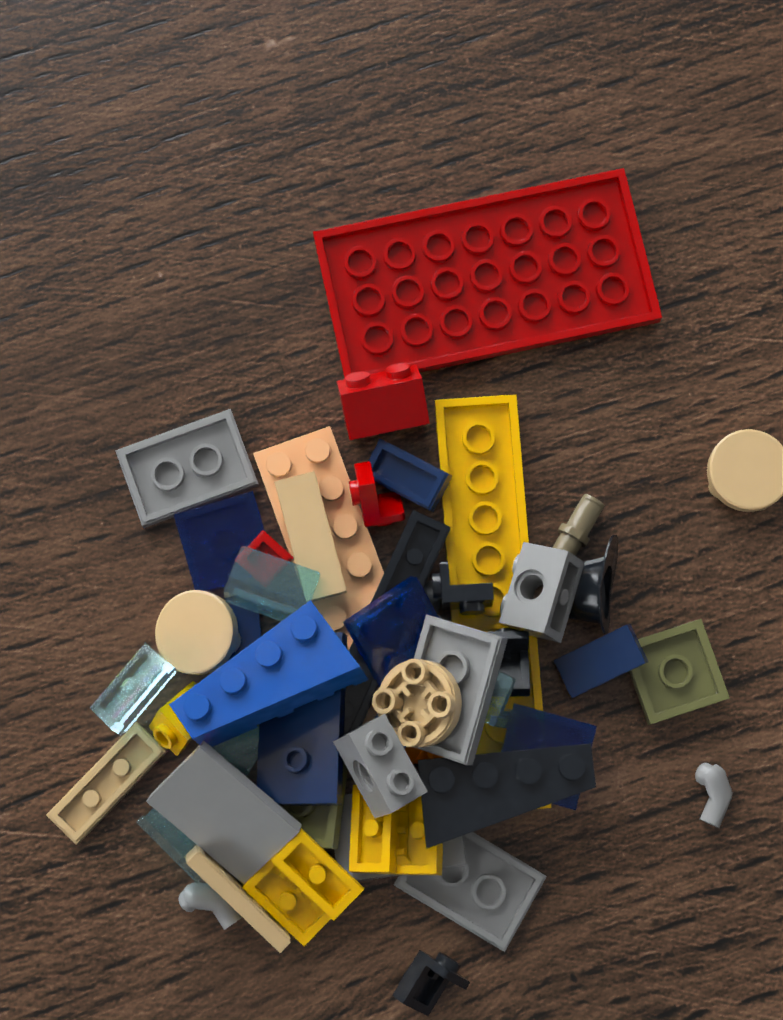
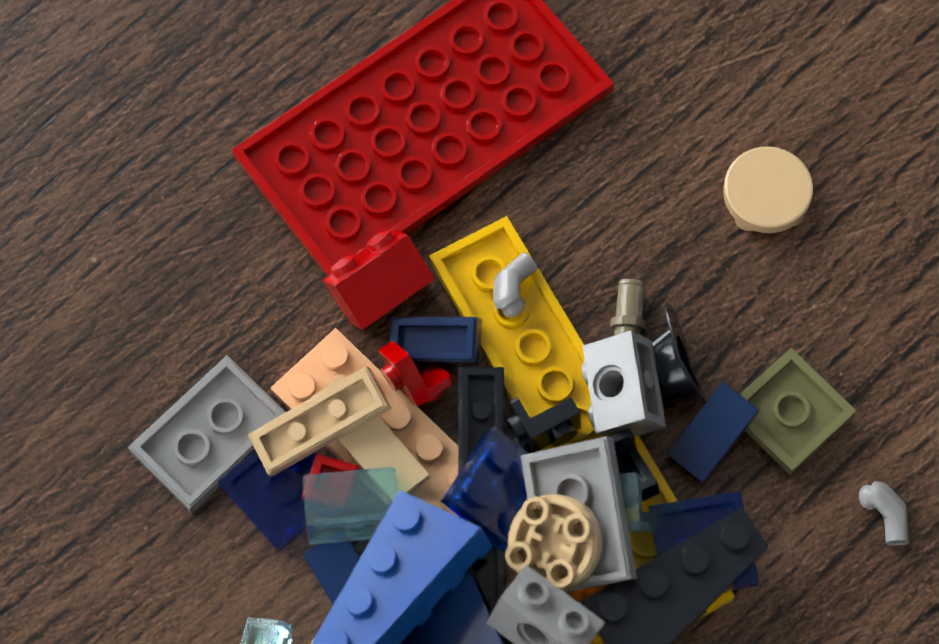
camera: 20 degrees left, 10 degrees down
(197, 632) = (295, 584): tan tile -> none
(277, 504) = (319, 421): none -> tan tile
(487, 457) = (507, 285): none -> light grey arm

